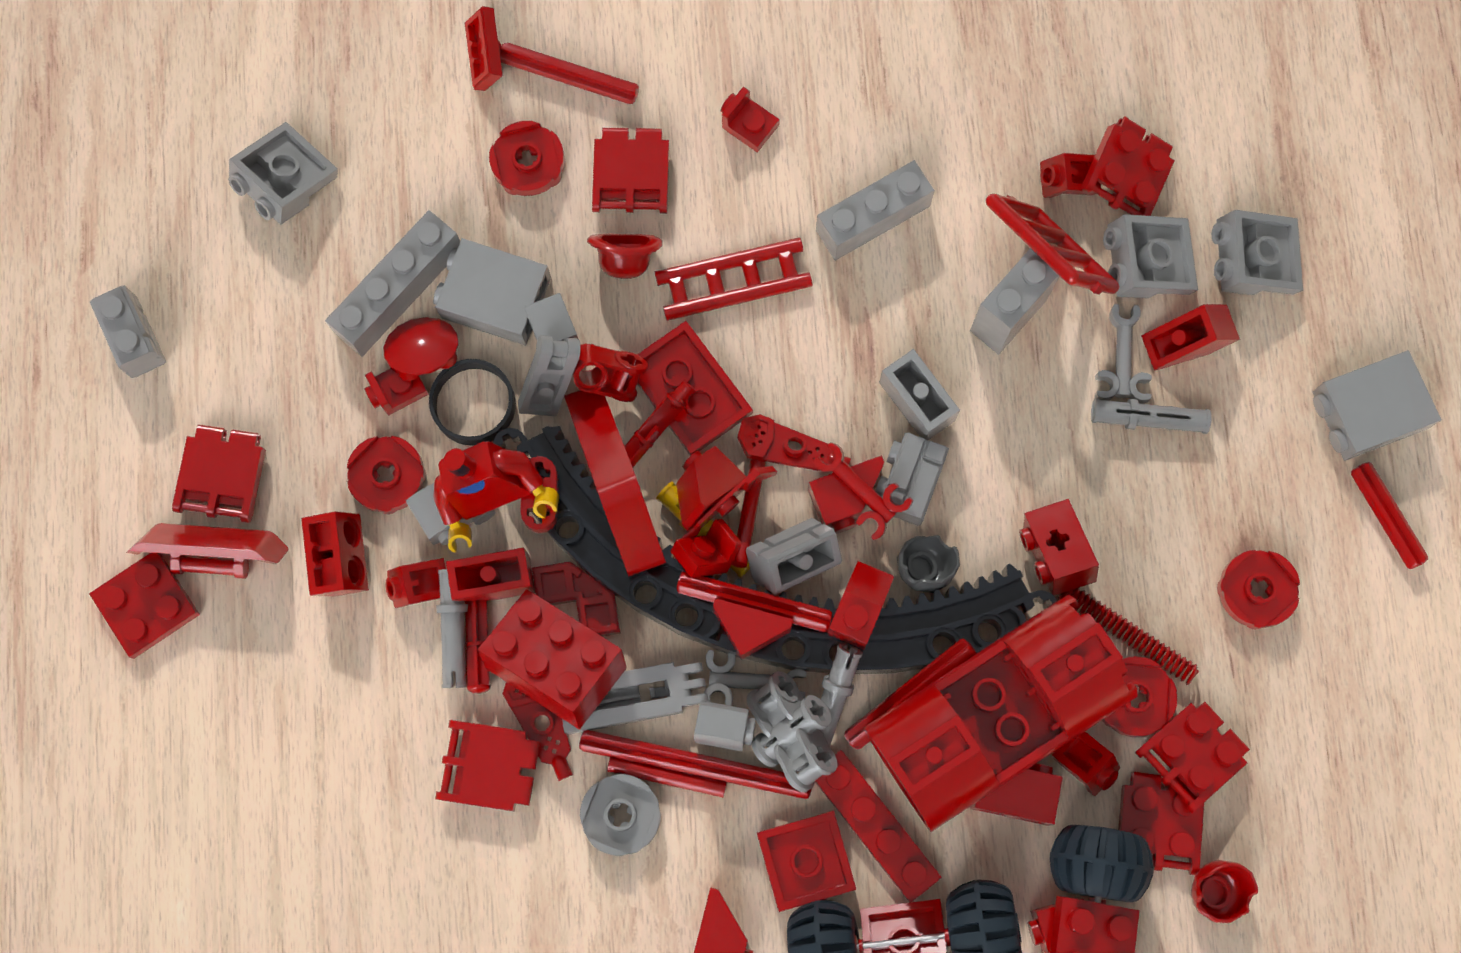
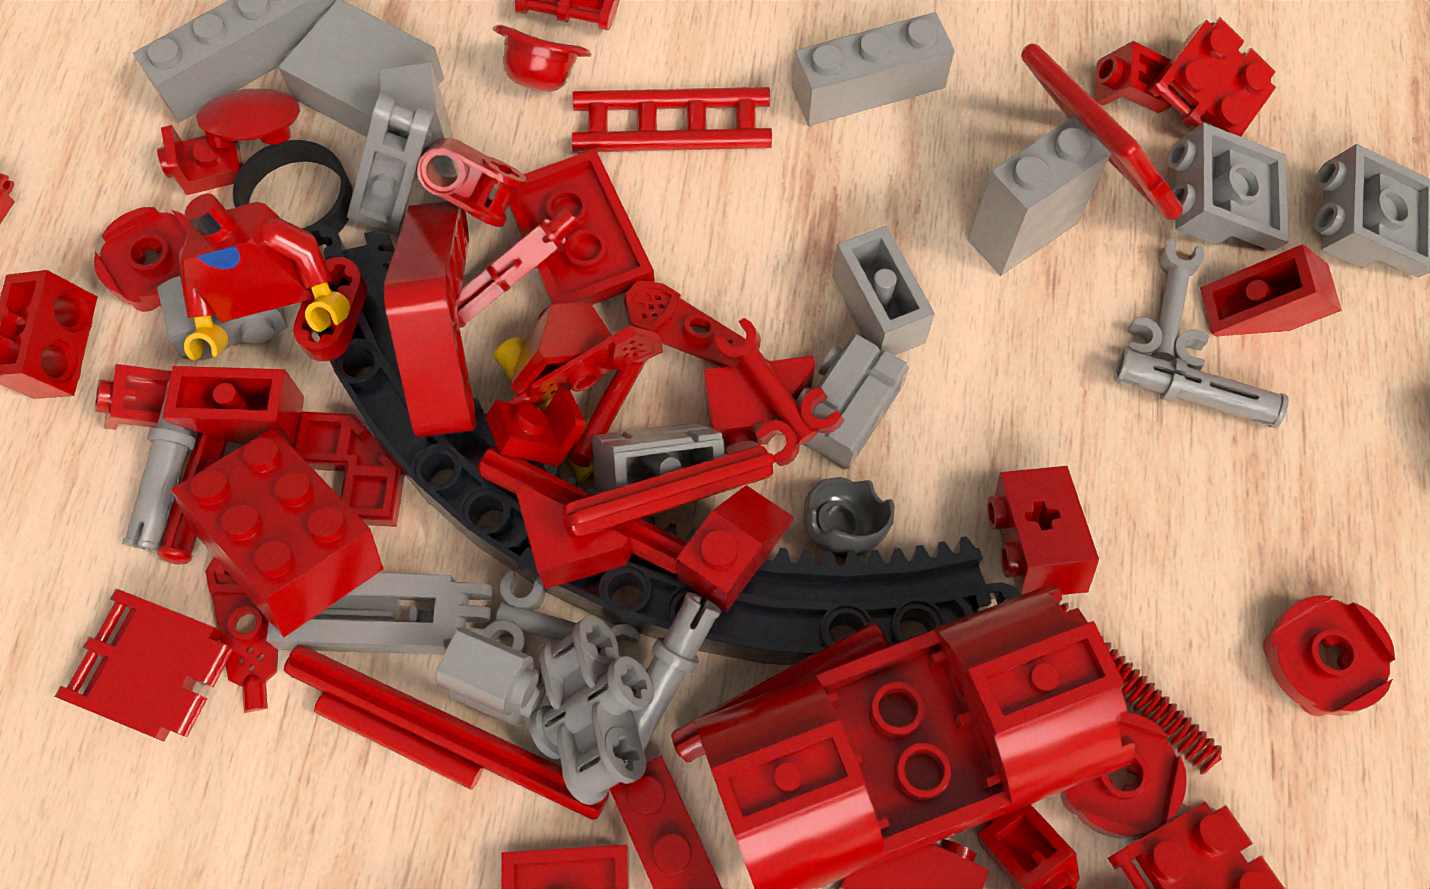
camera: 10 degrees right, 10 degrees down
(610, 794) = (276, 784): light grey plate -> none
(811, 580) = (666, 491): none -> red axle

